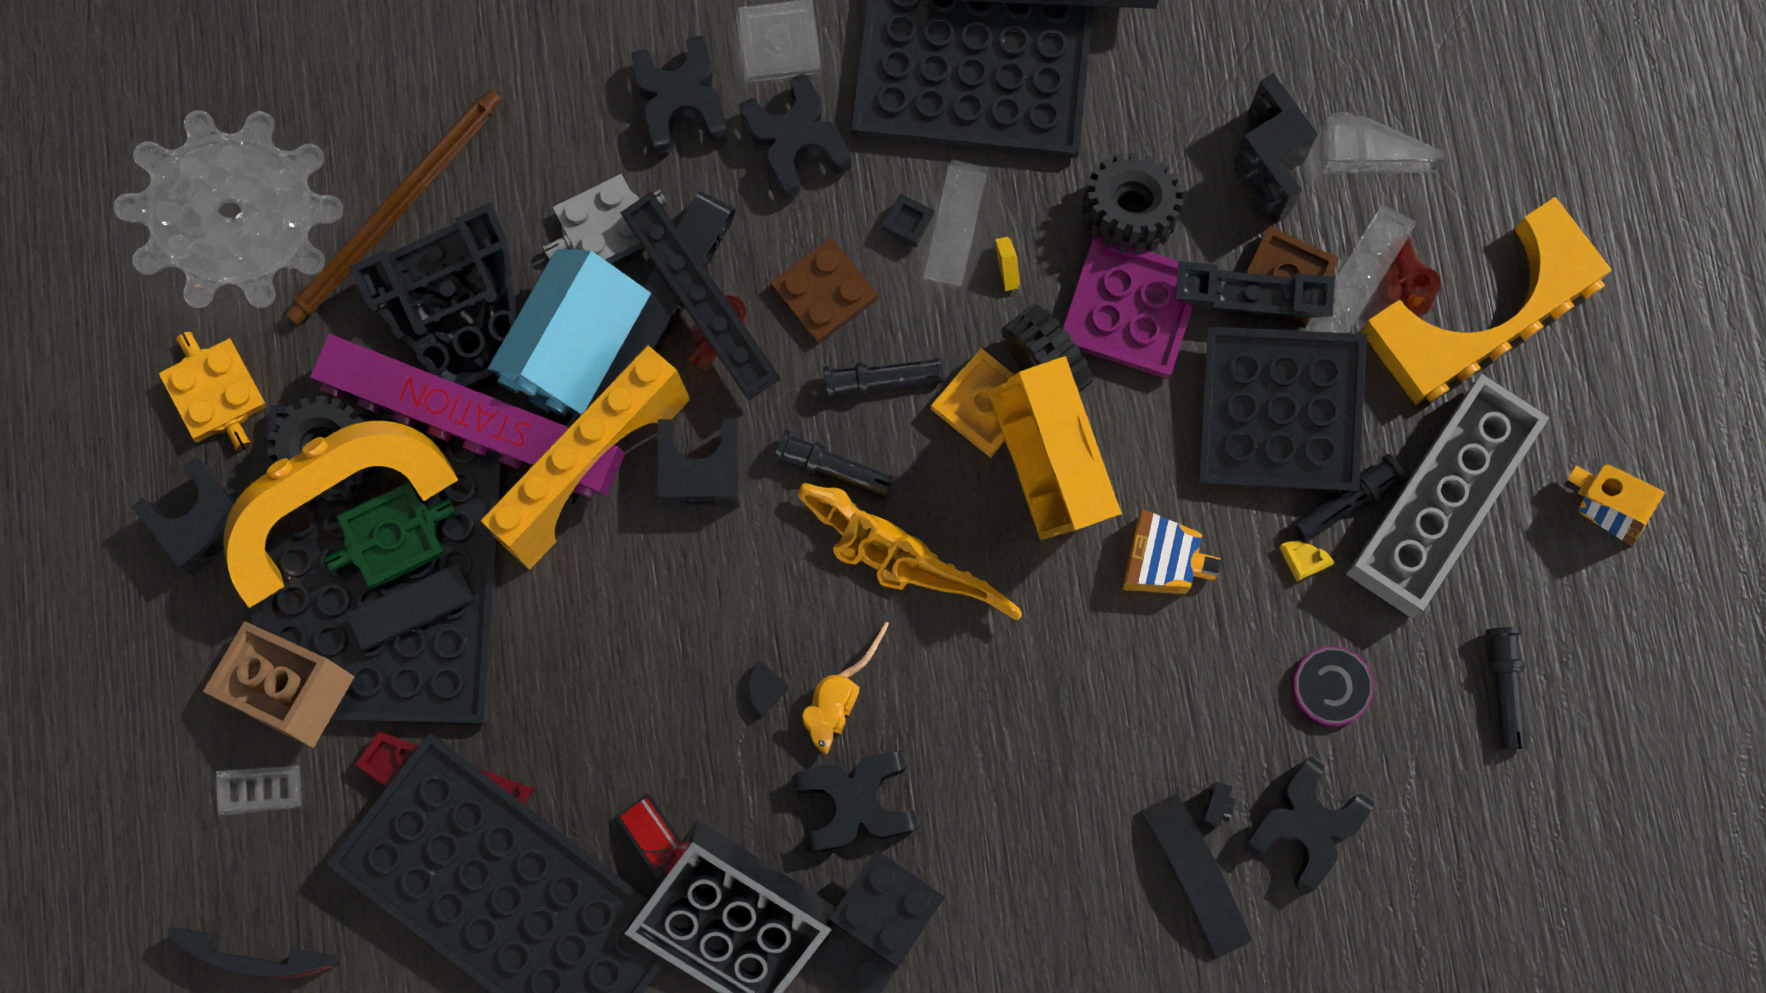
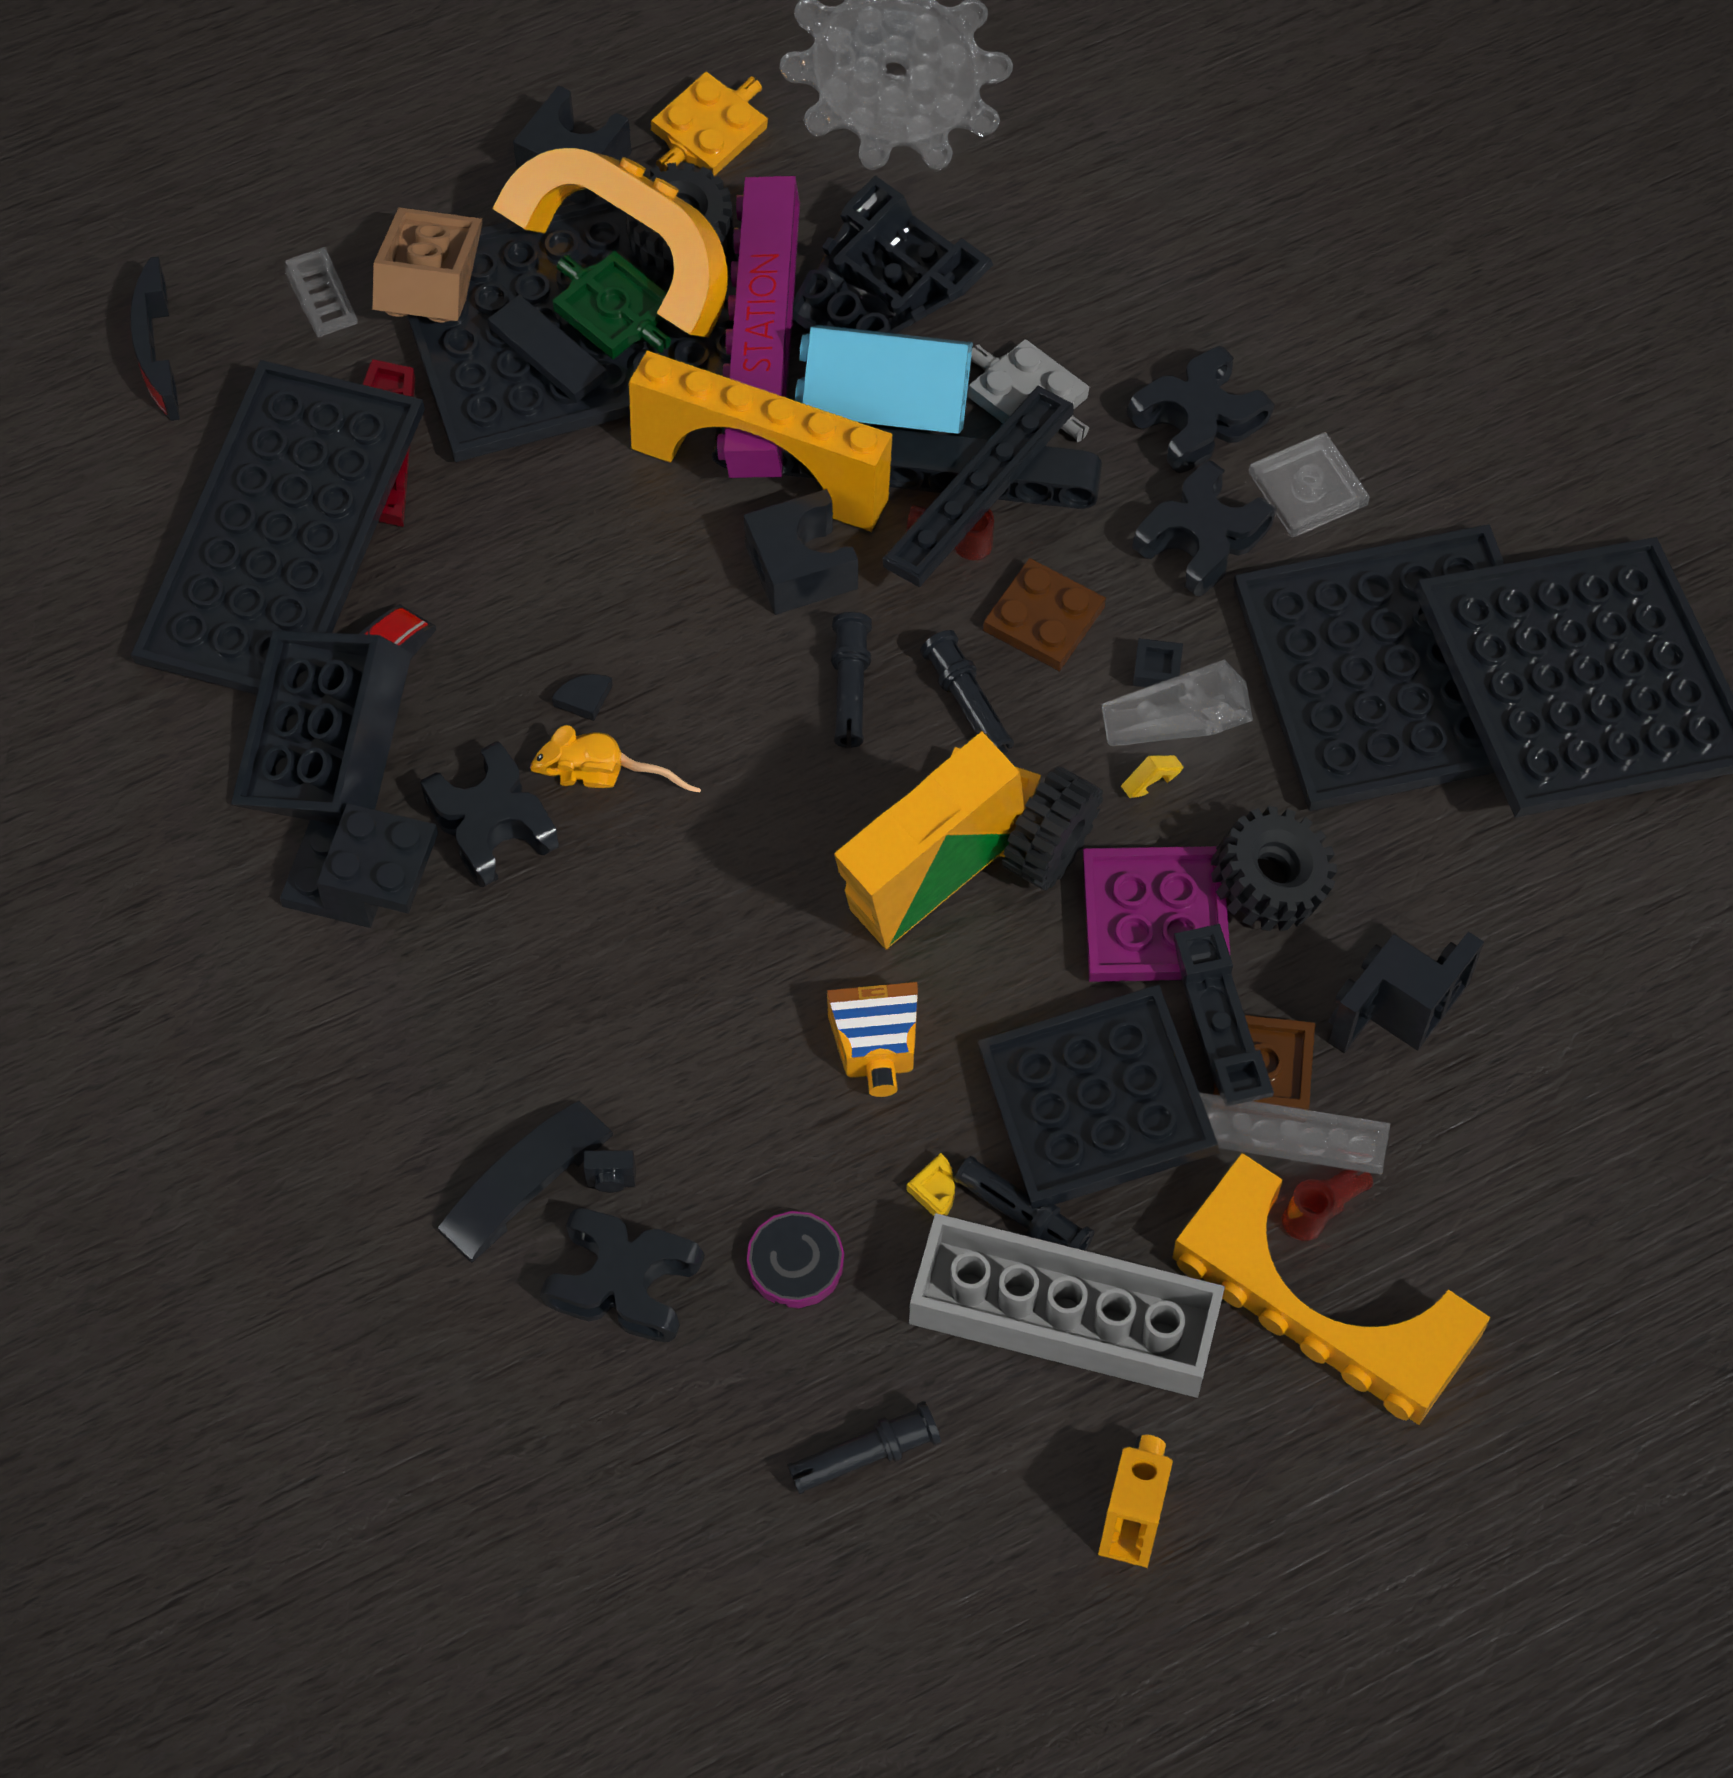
camera: 70 degrees right, 15 degrees down
(393, 207) = (973, 209): reddish brown piece -> none
(892, 551) = (776, 762): light orange animal -> none
(1368, 146) = (1458, 1093): clear slope -> none

